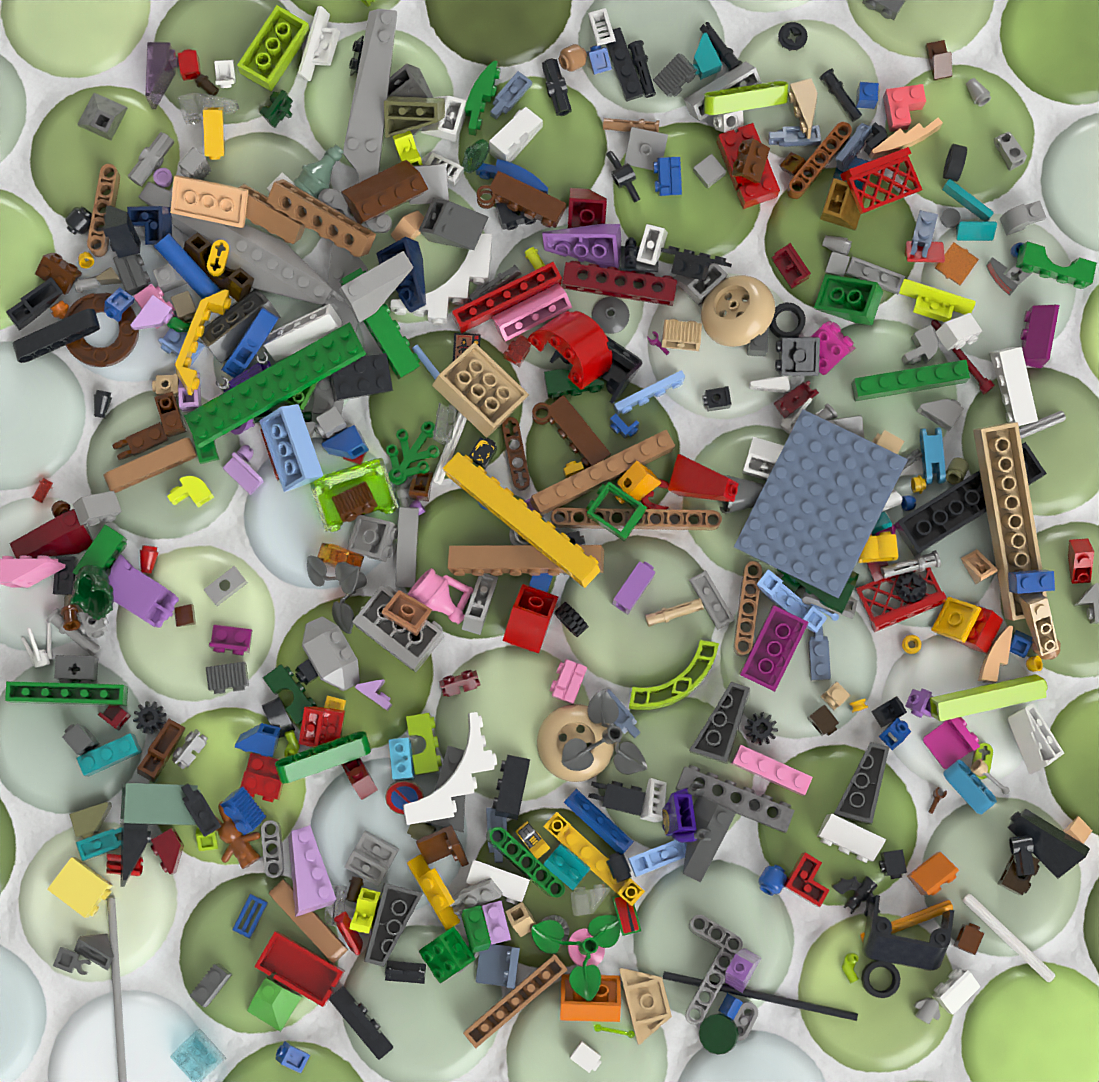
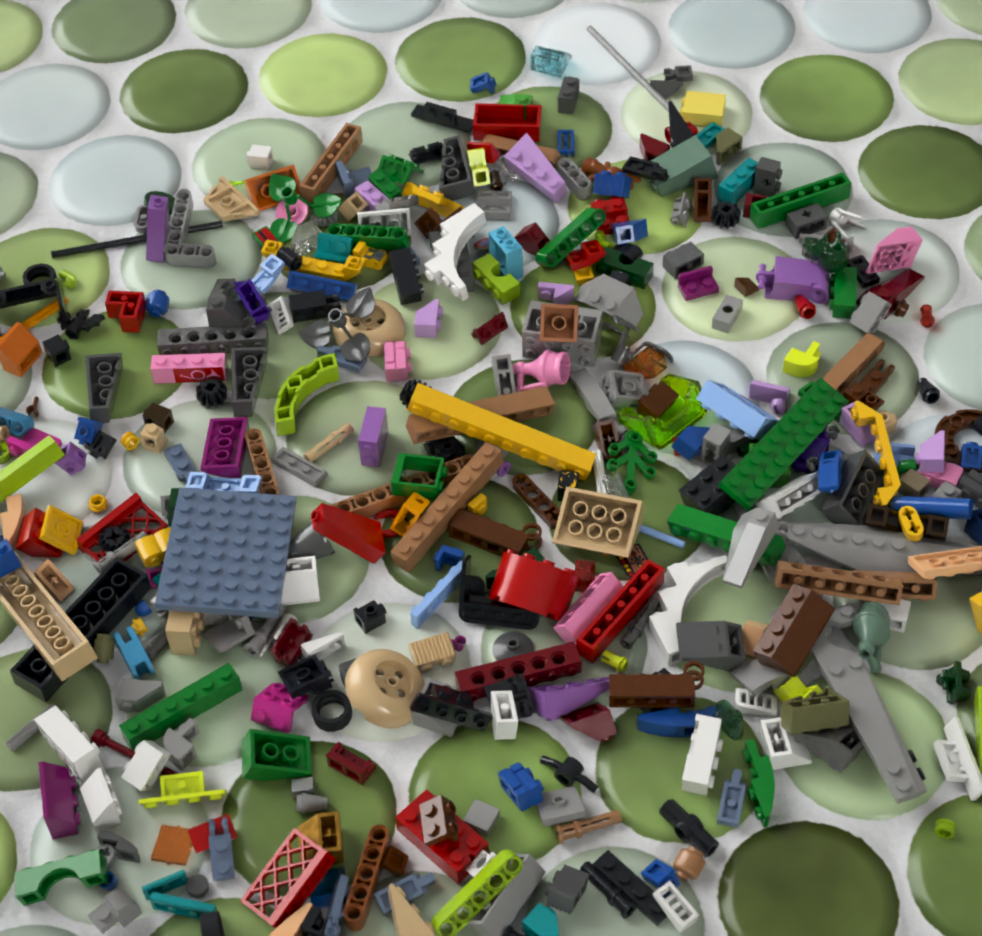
camera: 160 degrees right, 30 degrees down
(412, 288) = (735, 602): dark blue wedge -> none
(515, 721) = (427, 320): none -> lavender slope
(530, 618) = (455, 381): red slope -> none
(850, 838) = (94, 346): white slope -> none
(864, 270) = (258, 795): light grey tile -> none
(1004, 318) = (101, 801): none -> white slope

